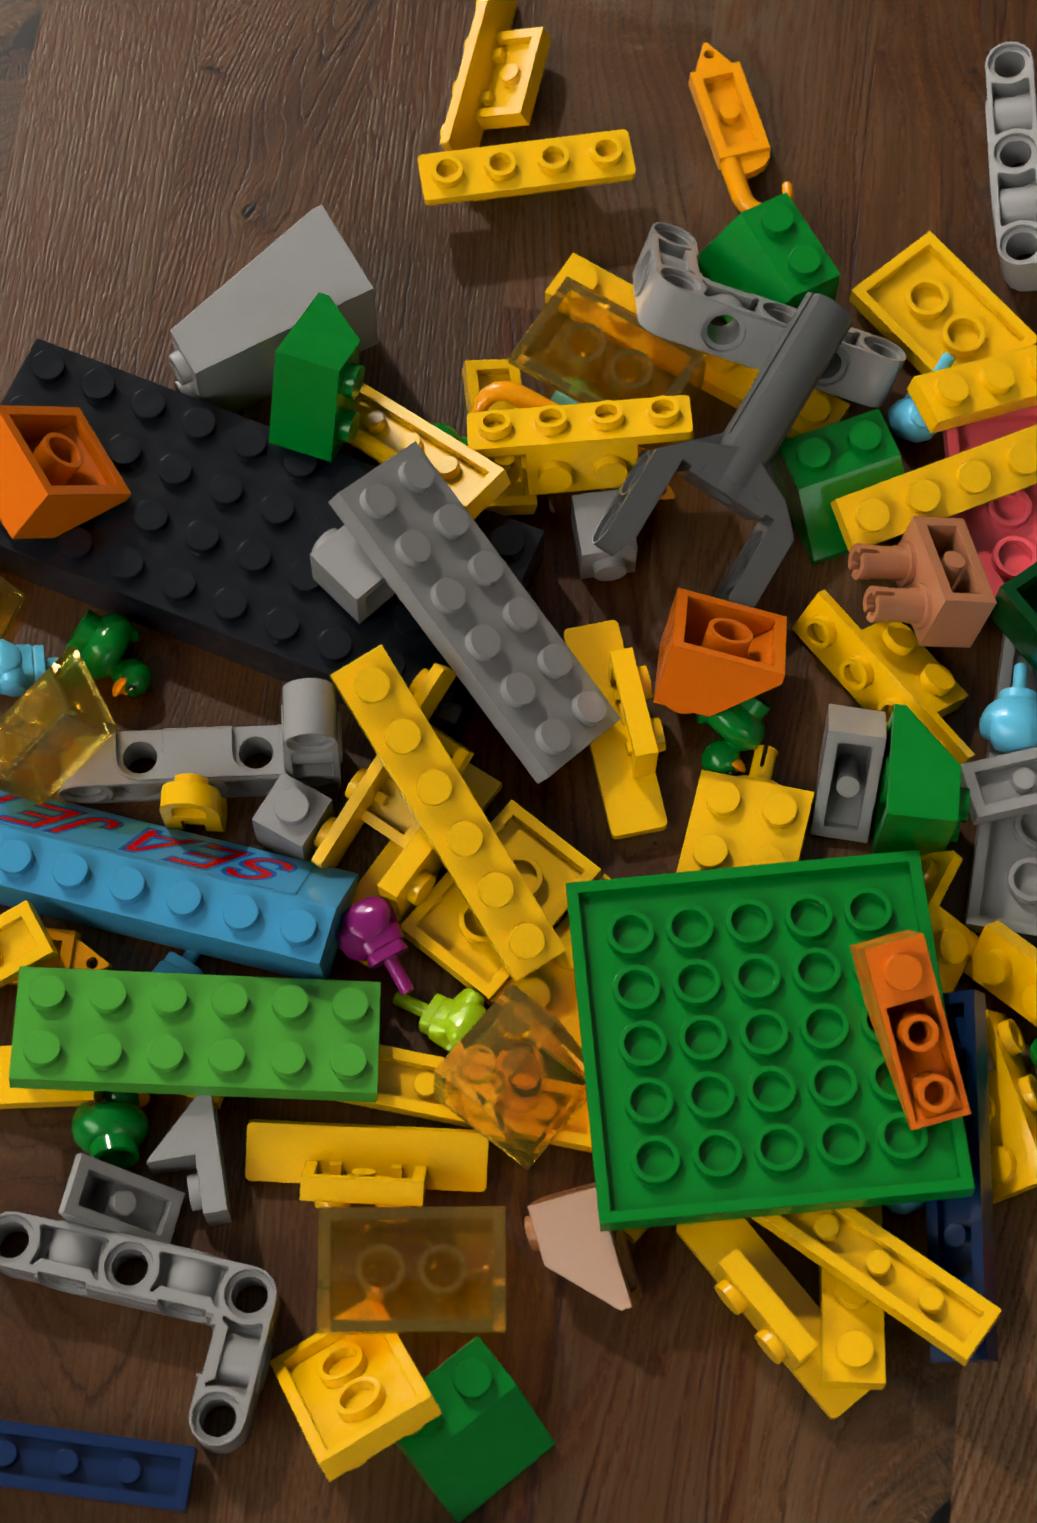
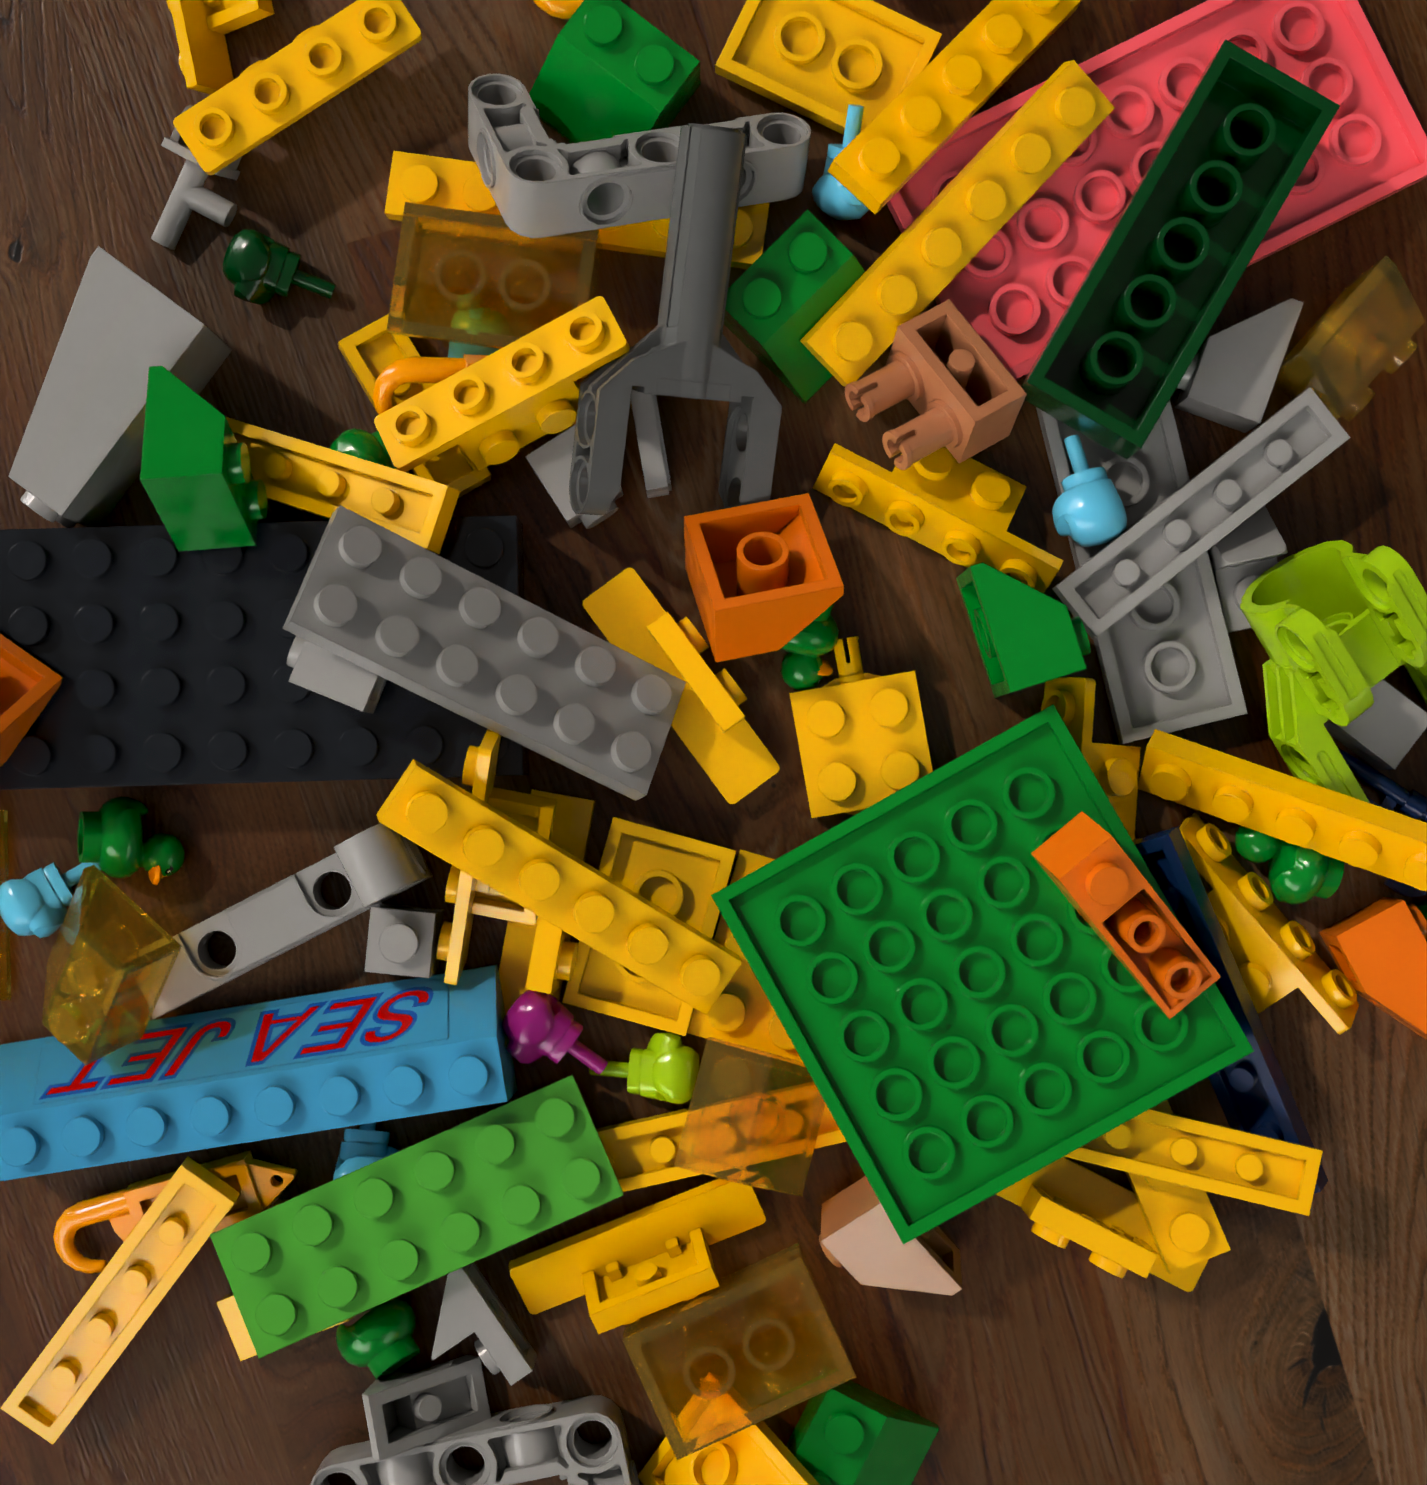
camera: 25 degrees left, 20 degrees up
(192, 802) = (297, 974): yellow plate -> none
(404, 217) = (191, 195): none -> light grey arm
(432, 291) = (266, 267): none -> dark green piece
(676, 532) = (651, 444): none -> light grey tile
(848, 772) = (940, 629): light grey slope -> none

